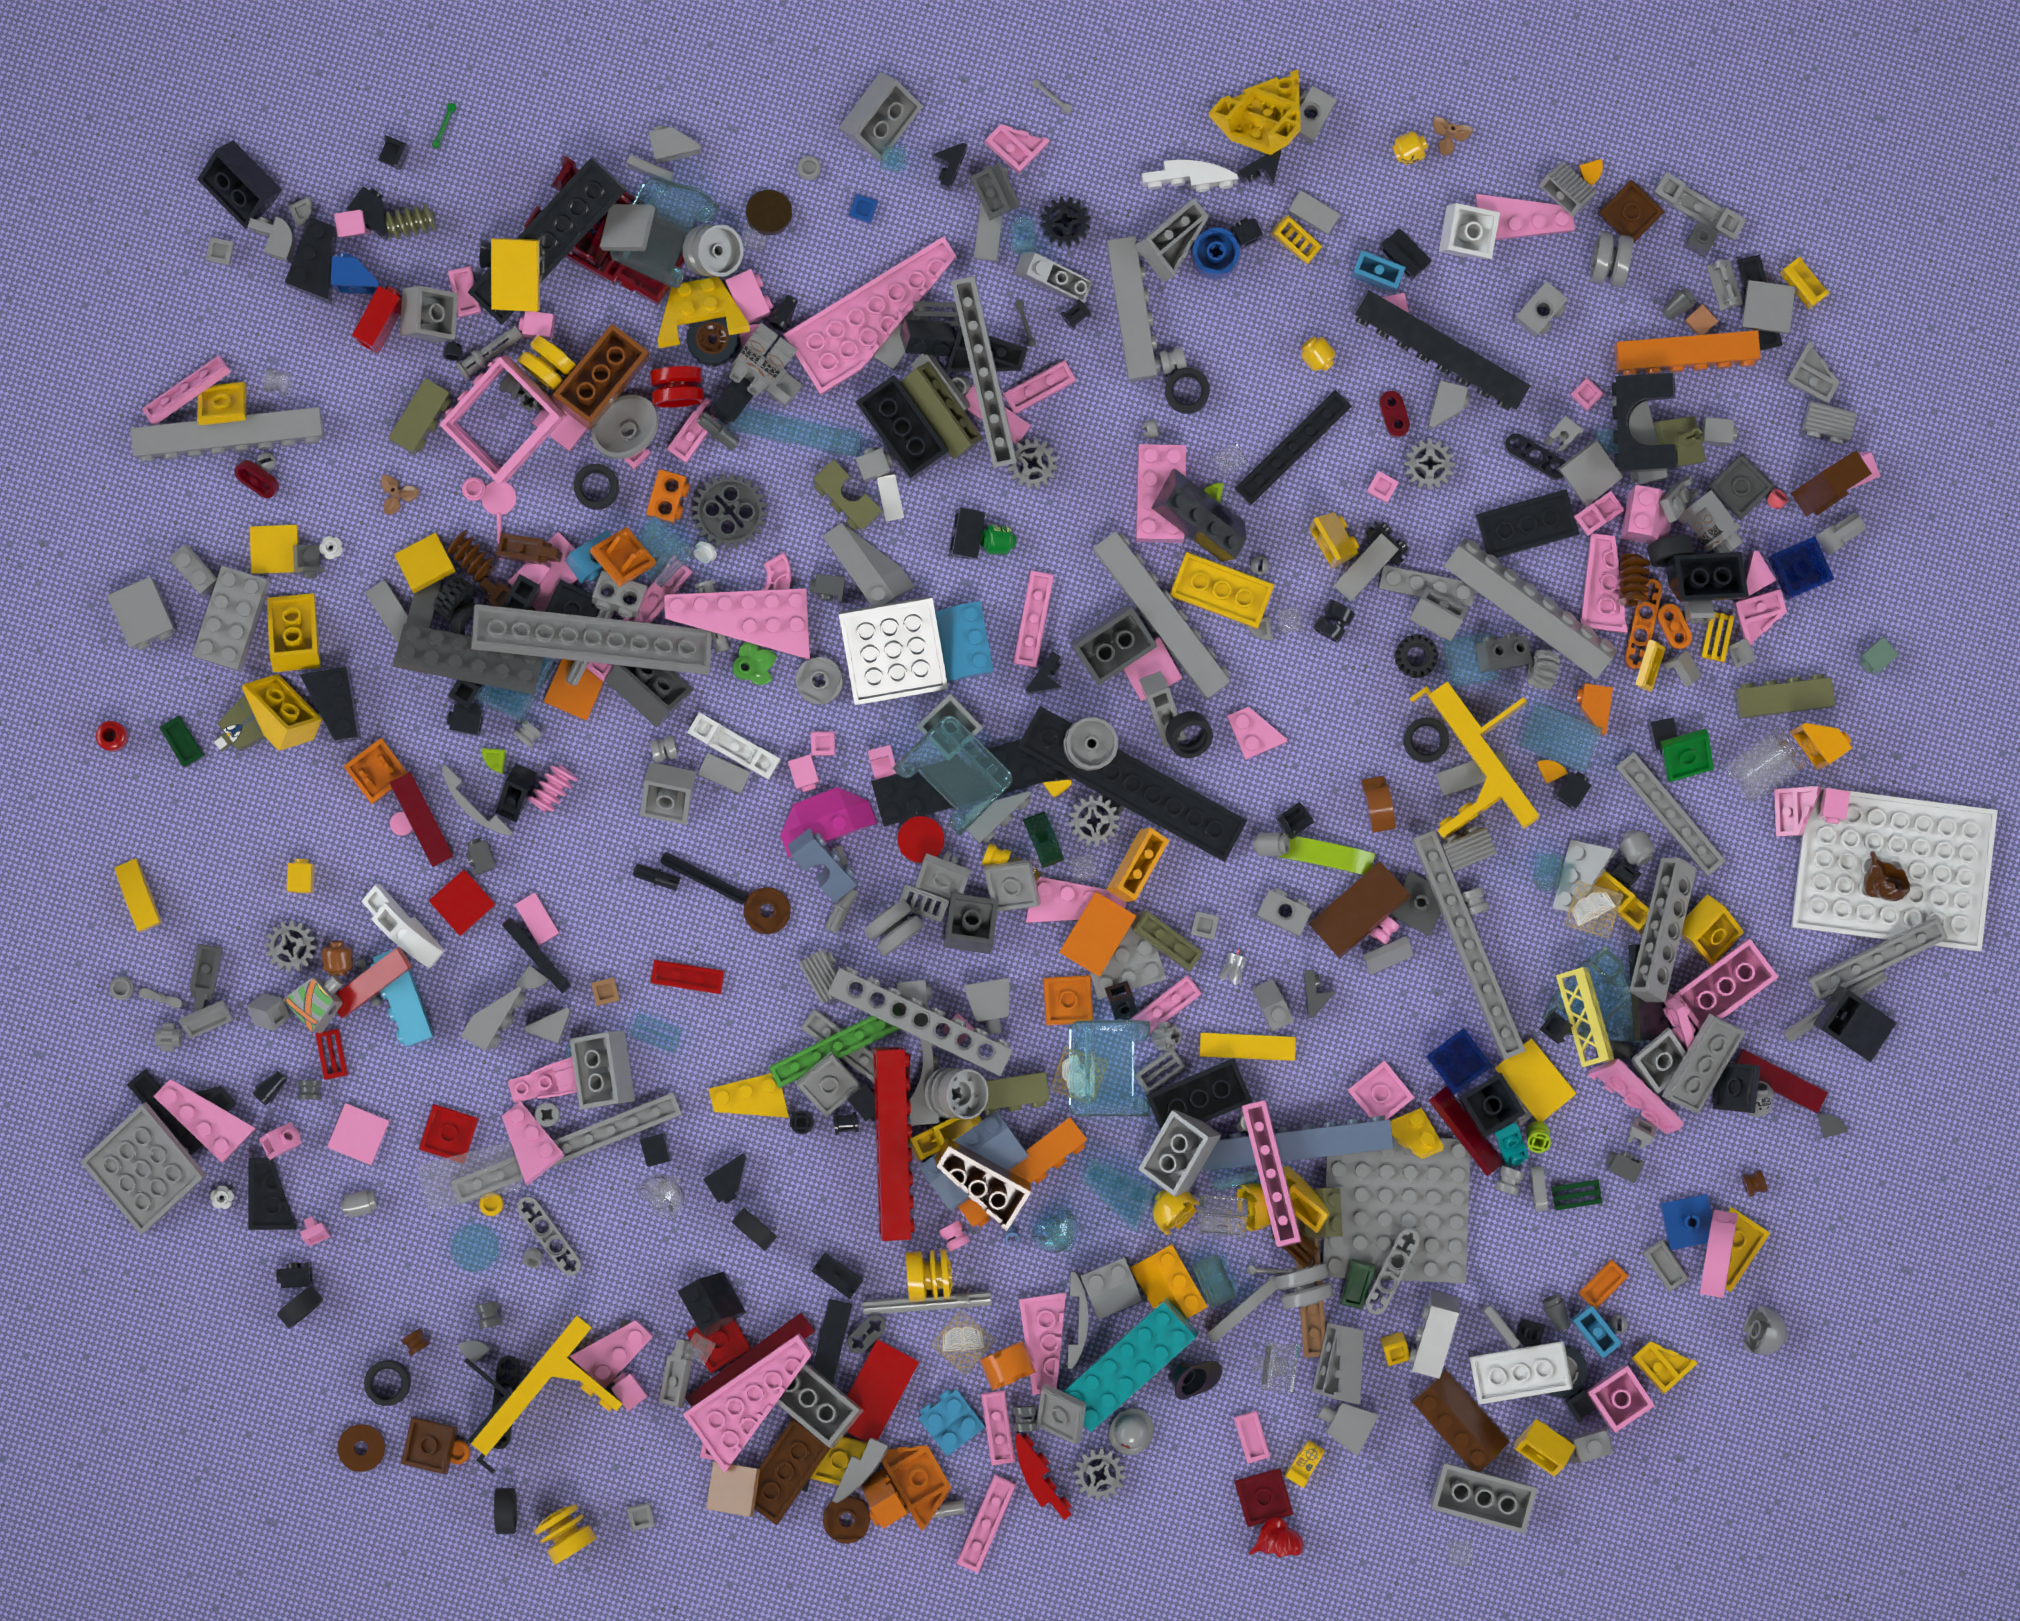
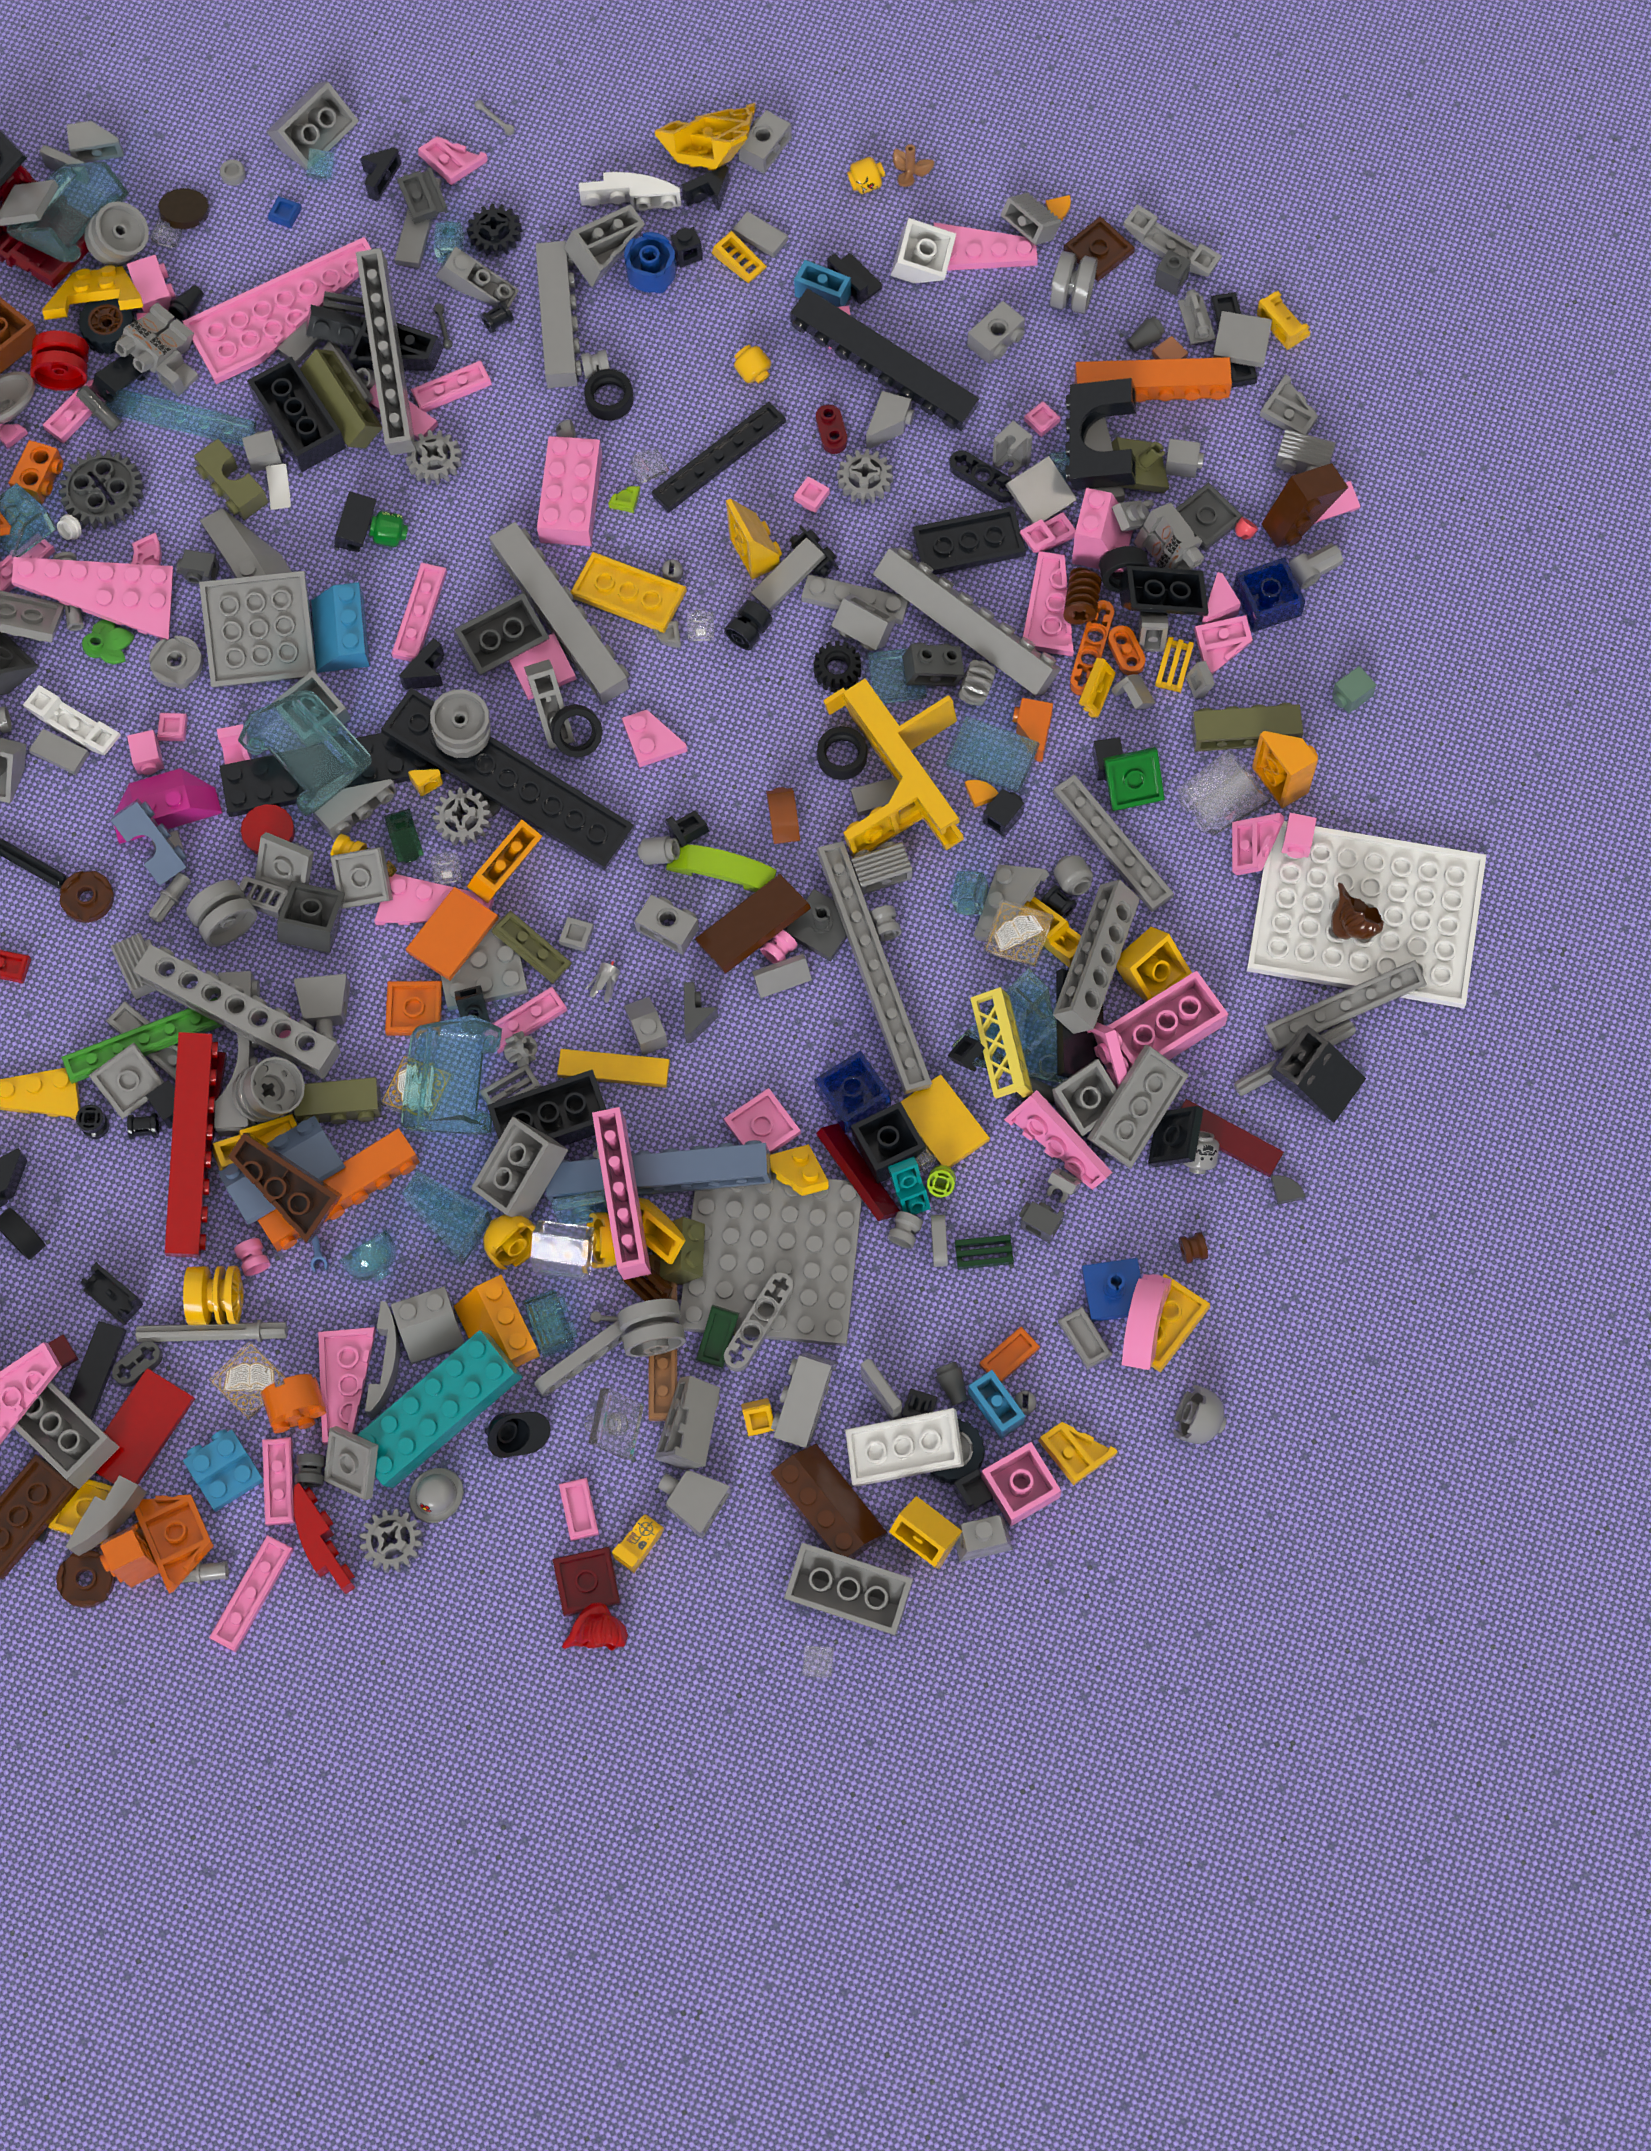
camera: 10 degrees right, 15 degrees down
(1200, 517) = (606, 509): black slope -> none

